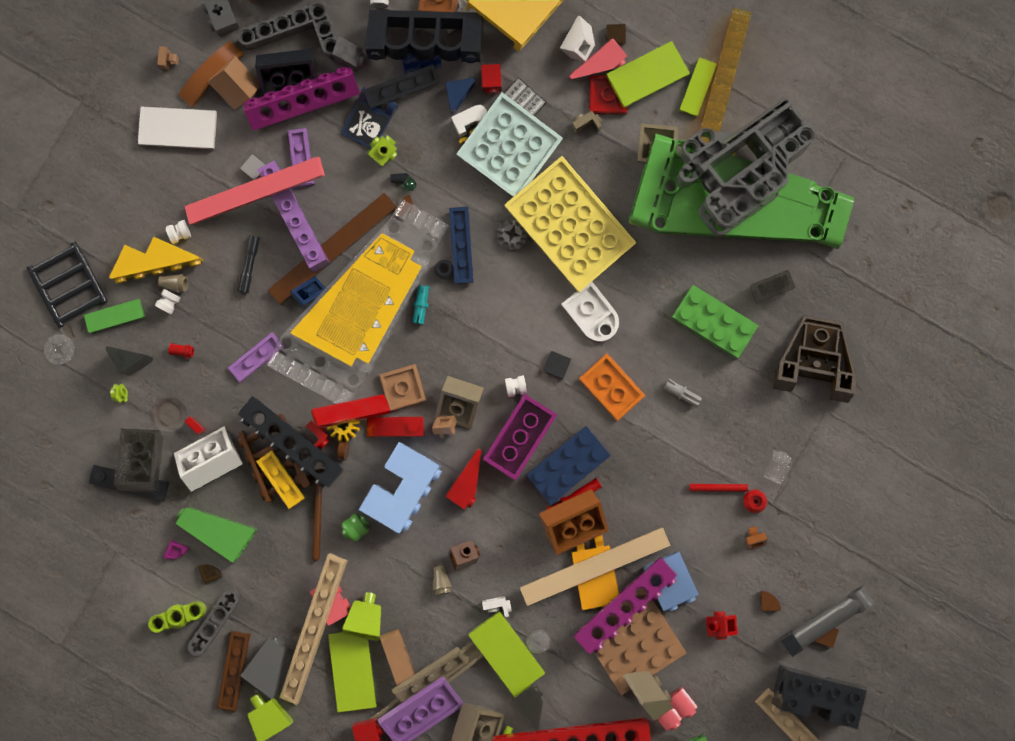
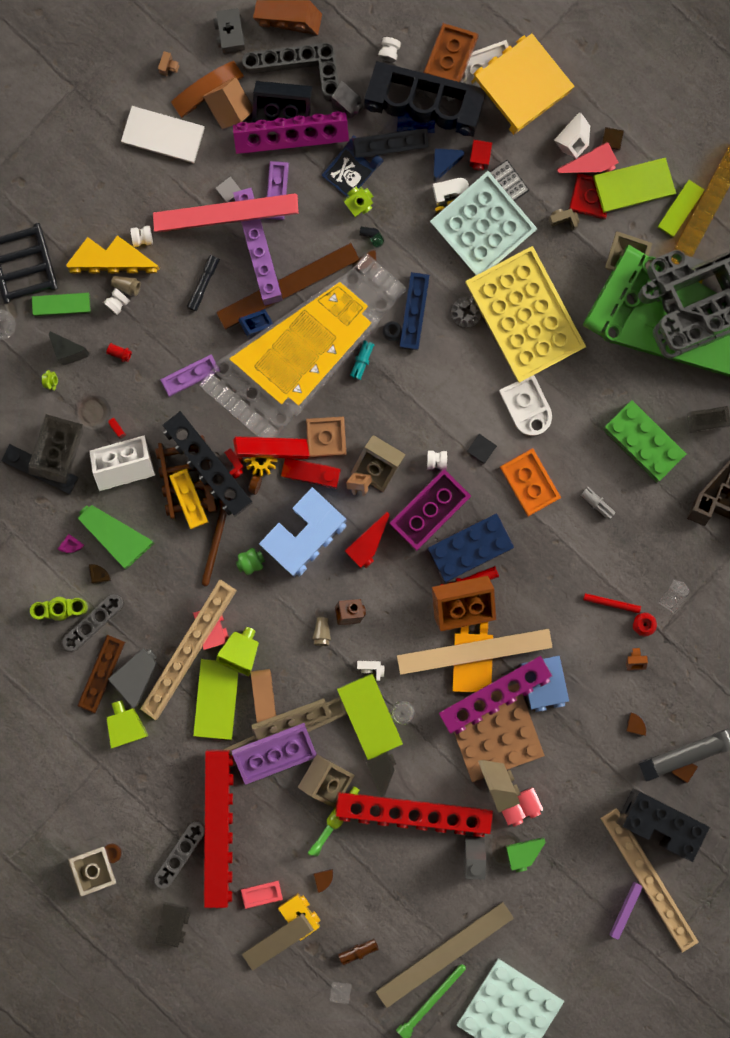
camera: 10 degrees right, 0 degrees up
(721, 625) = (584, 736): red brick -> none

